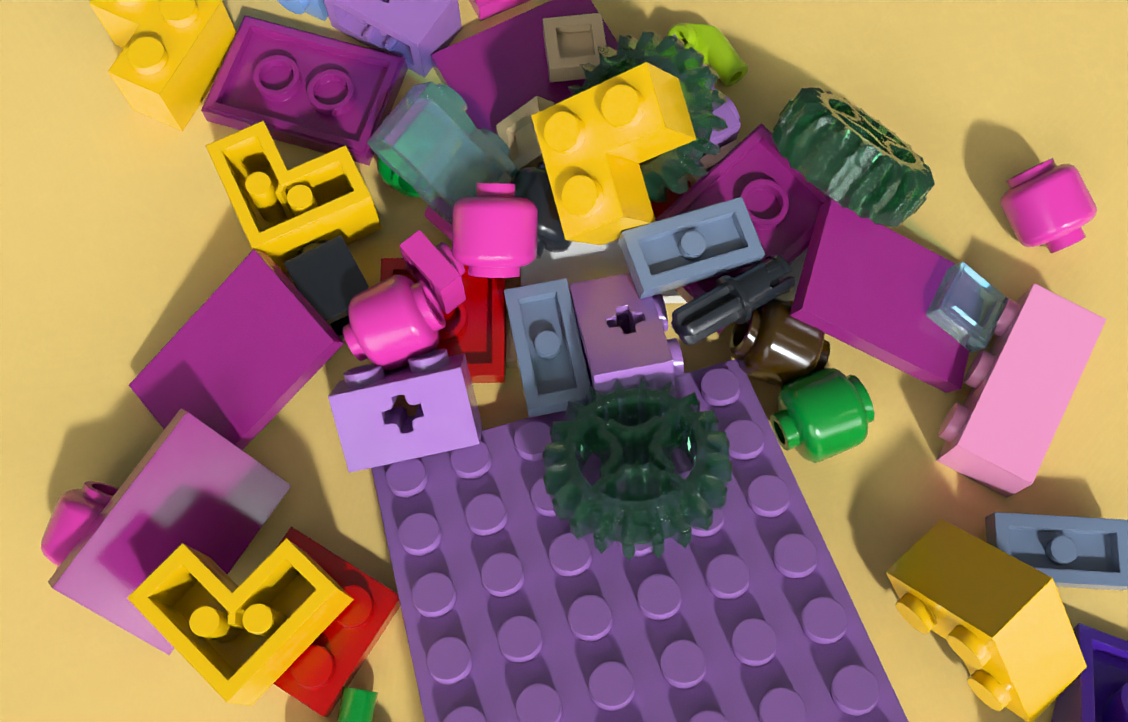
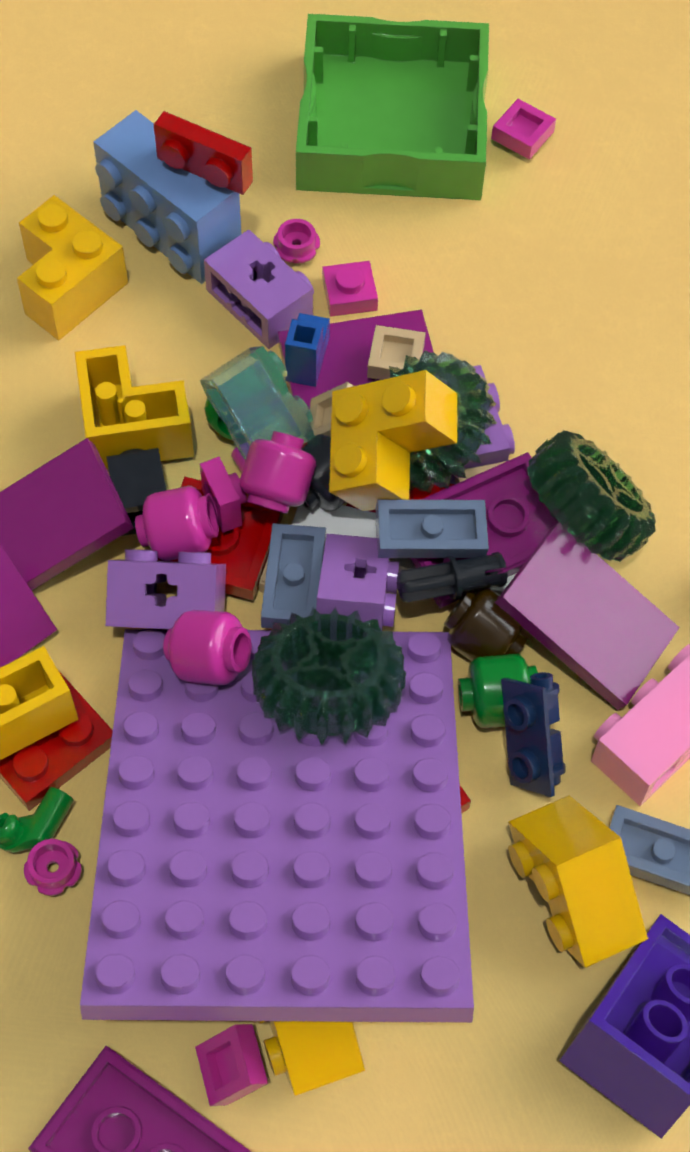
camera: 15 degrees right, 10 degrees down
(305, 88) = (167, 330): magenta tile -> none
(472, 66) = (306, 348): none -> blue piece
(482, 472) = (207, 647): none -> dark pink head
(714, 47) = (513, 385): lime arm -> none
(879, 458) = (533, 748): none -> dark blue hinge
(967, 307) = (651, 641): clear light blue tile -> none

